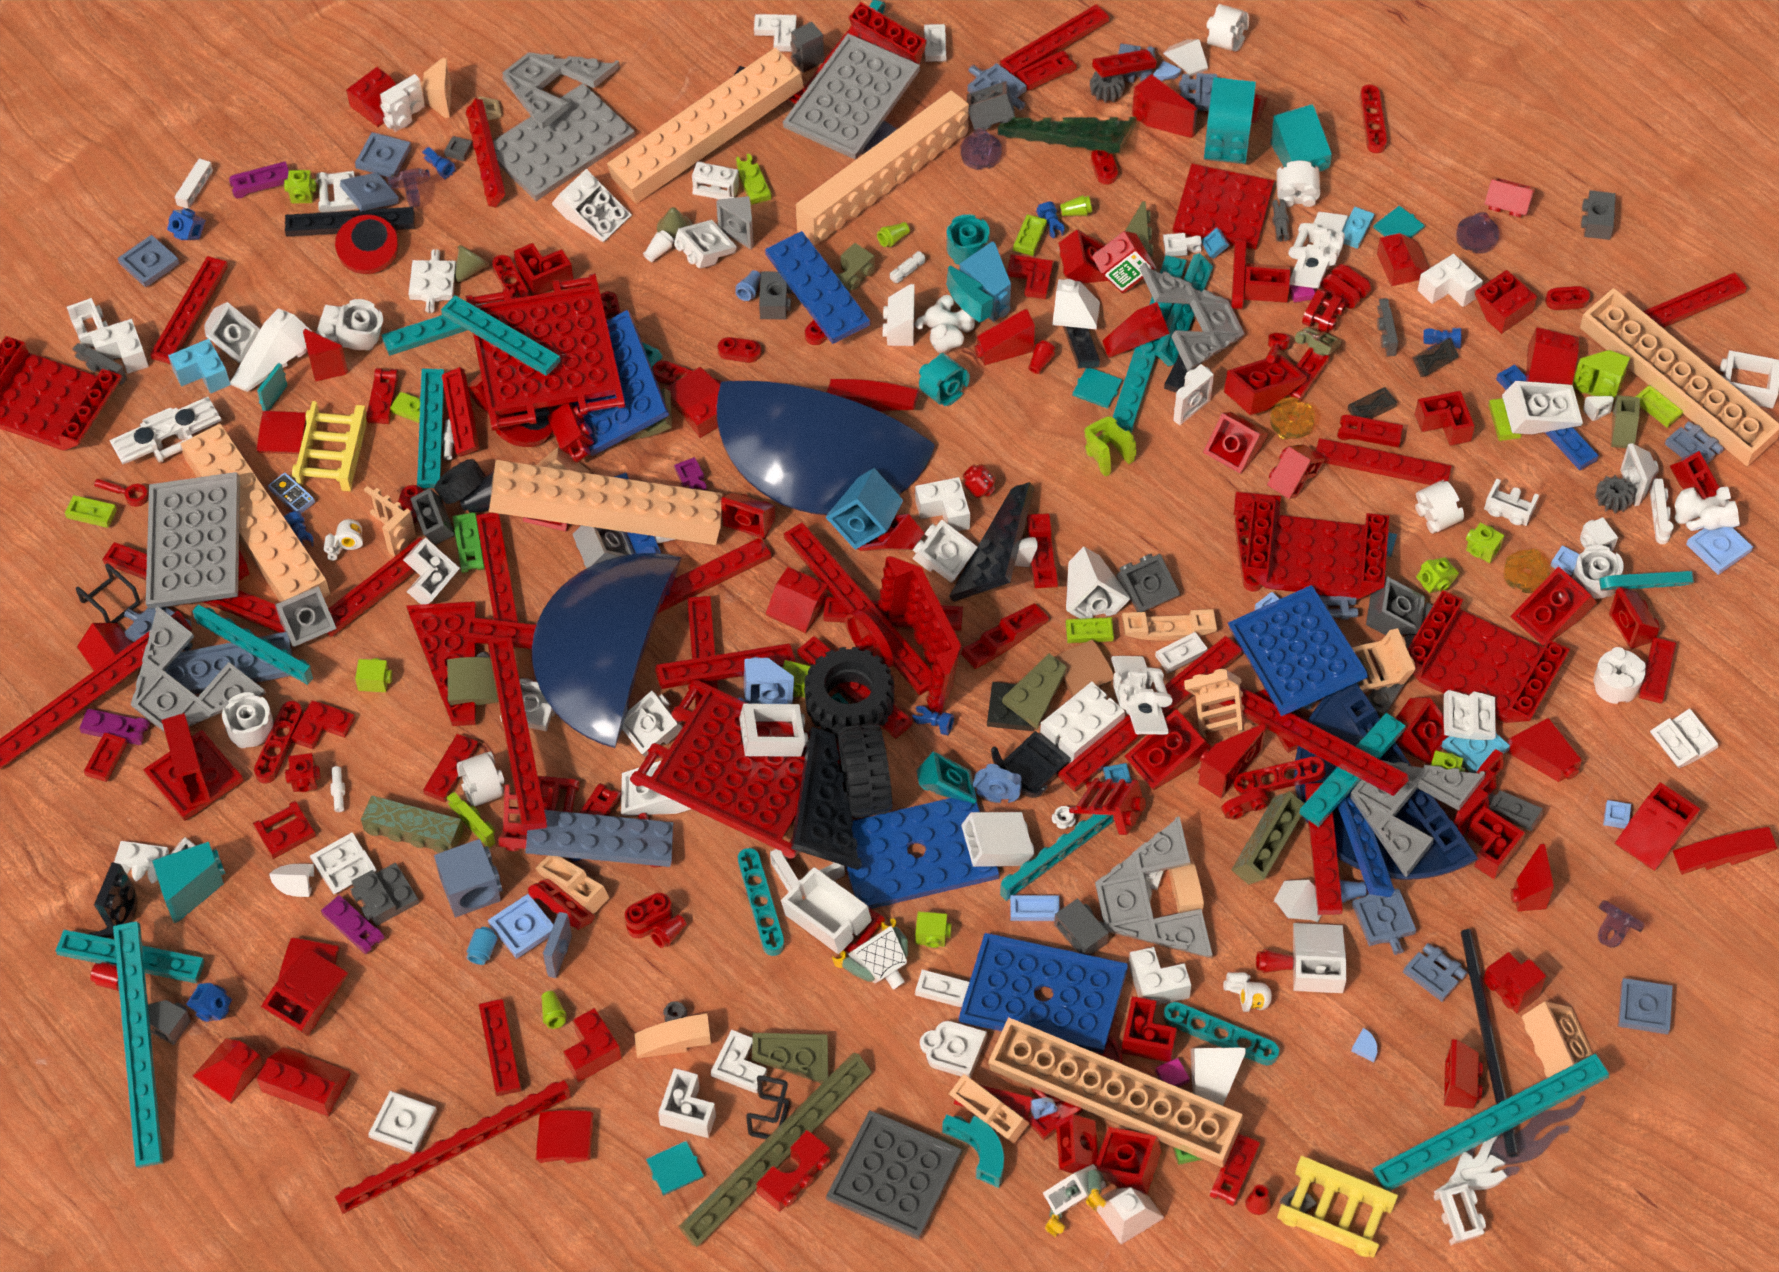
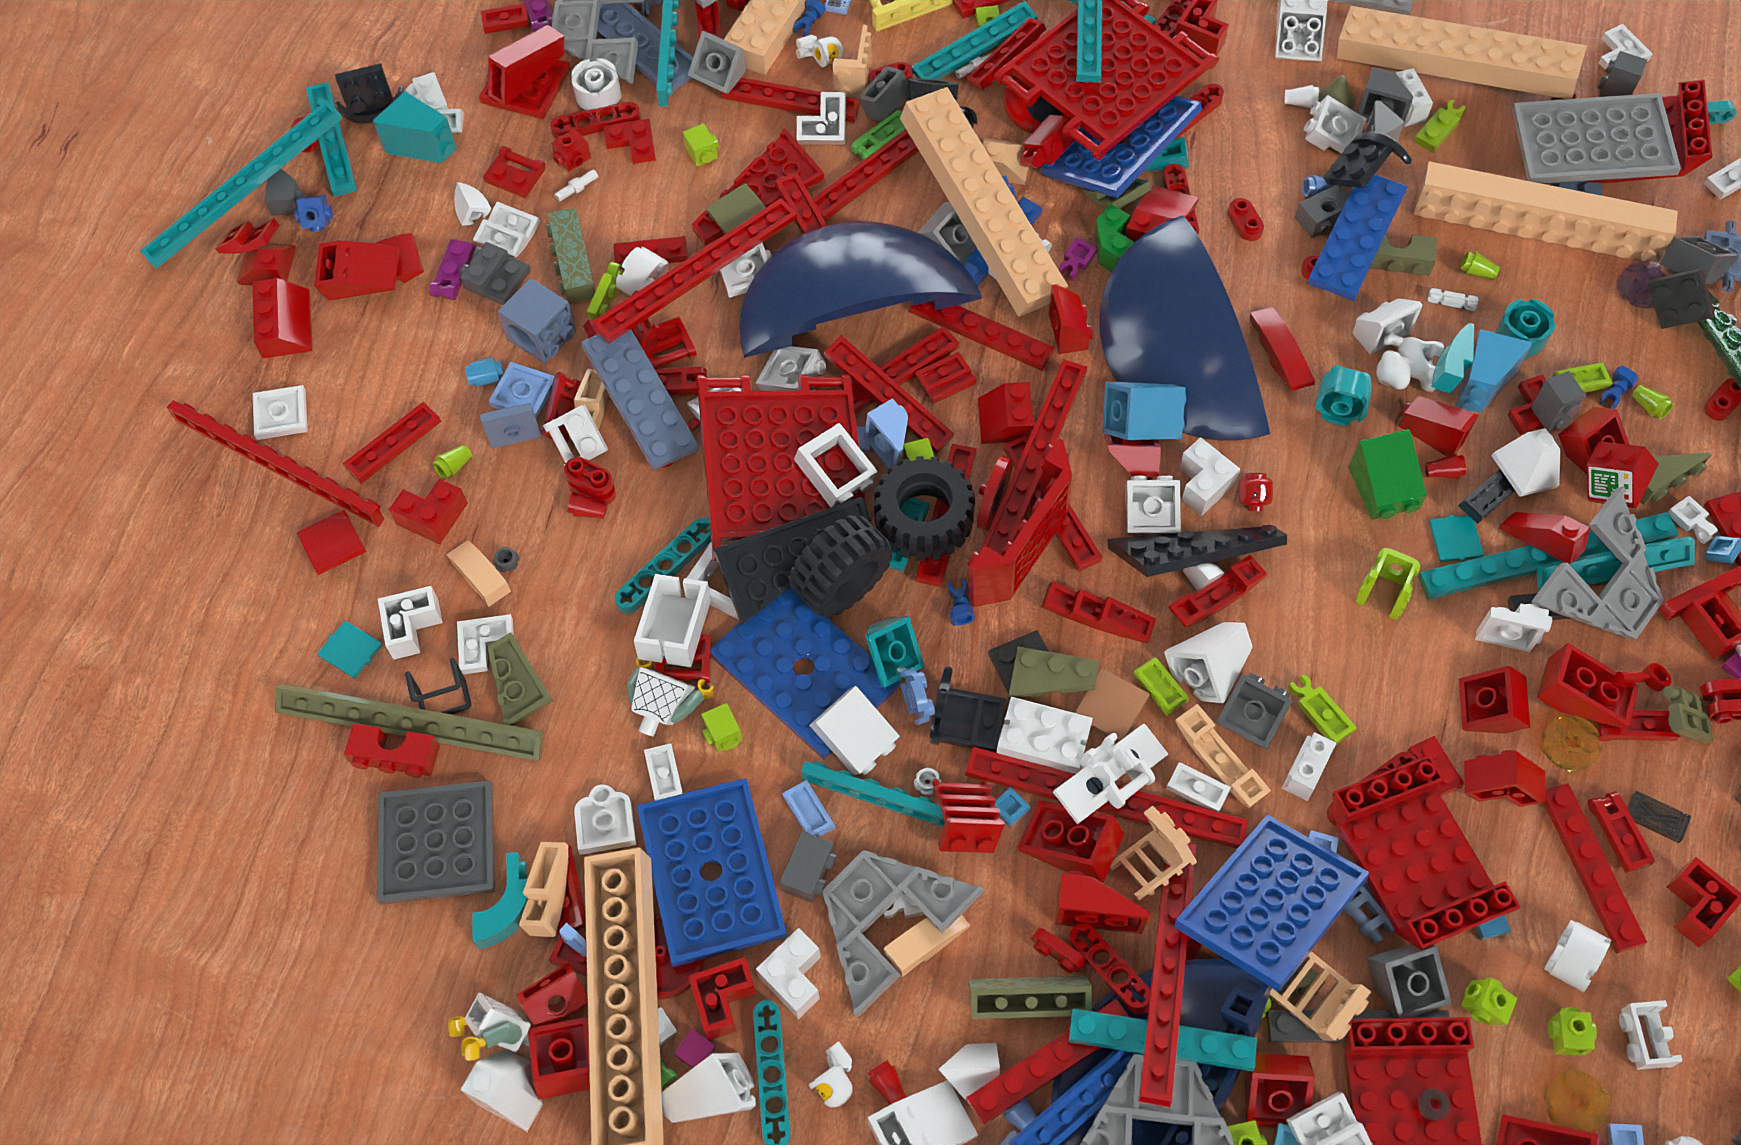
camera: 60 degrees right, 5 degrees up
(196, 1068) = (247, 238): none -> red slope
(606, 896) = (582, 431): none -> white plate
(703, 446) = (1110, 236): none -> green brick
(704, 192) = (1388, 89): none -> dark grey slope
(733, 623) = (945, 377): none -> red plate
(759, 242) = (1363, 159): none -> black piece
(1017, 136) = (1681, 298): none -> pearl dark grey plate
(1026, 394) = (1388, 475): none -> green slope
(1047, 257) = (1558, 401): none -> dark grey brick
(1174, 544) = (1322, 711): none -> lime plate
(1210, 576) = (1308, 766): none -> white window
(1484, 651) = (1426, 1108): none -> clear smoke plate

